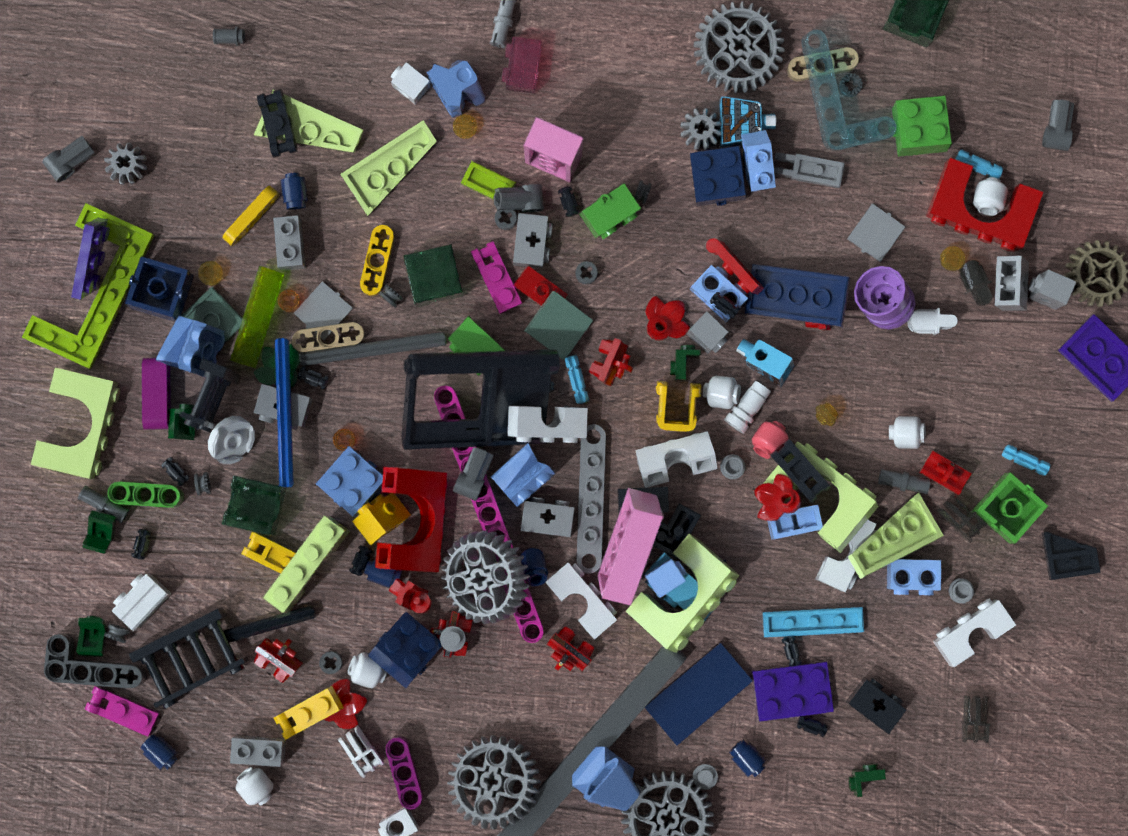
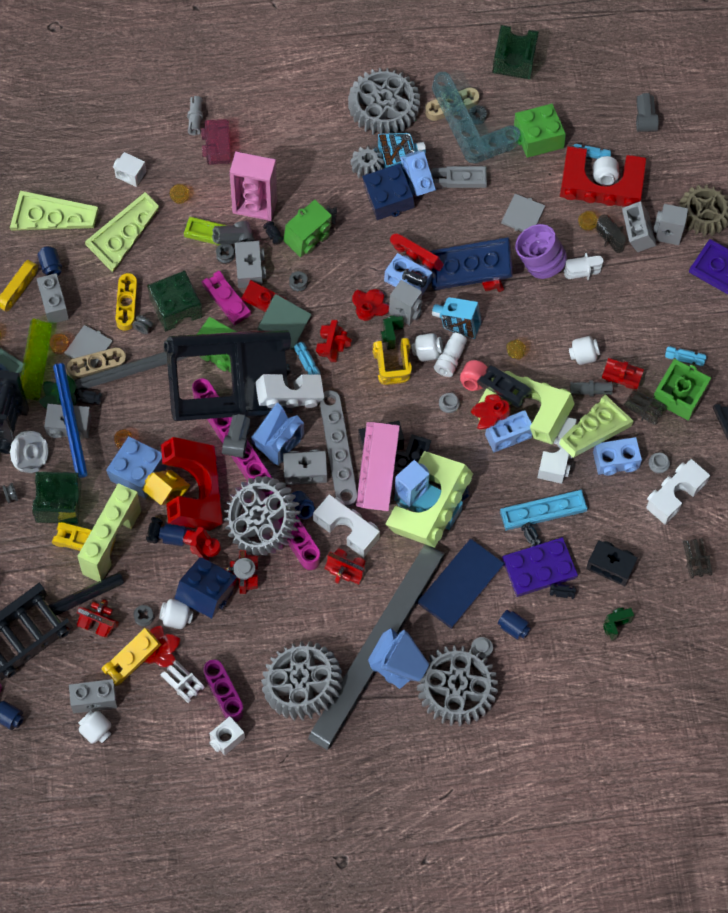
camera: 10 degrees left, 20 degrees down
(277, 123) = (28, 213): black plate -> none
(455, 86) = (166, 162): medium blue piece -> none
(691, 450) = (413, 394): white arch -> none

